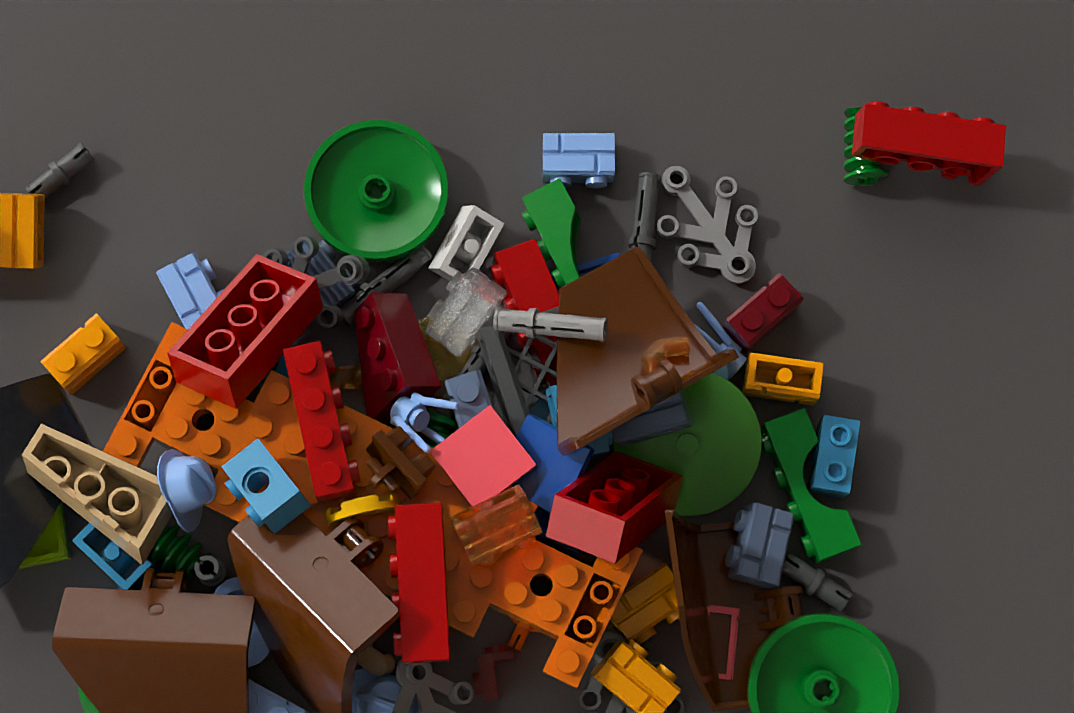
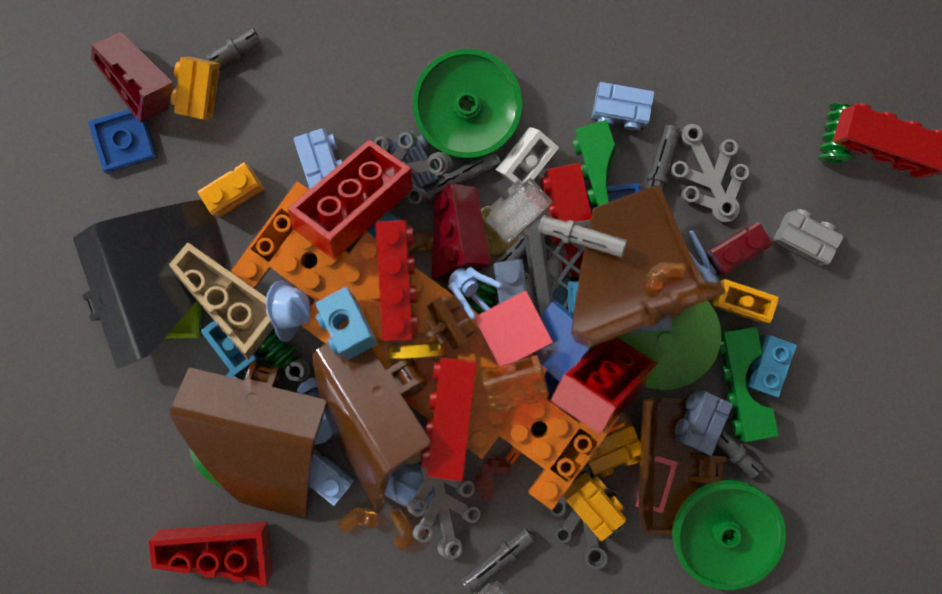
camera: 15 degrees right, 10 degrees up
(851, 283) = (807, 237): none -> light grey brick

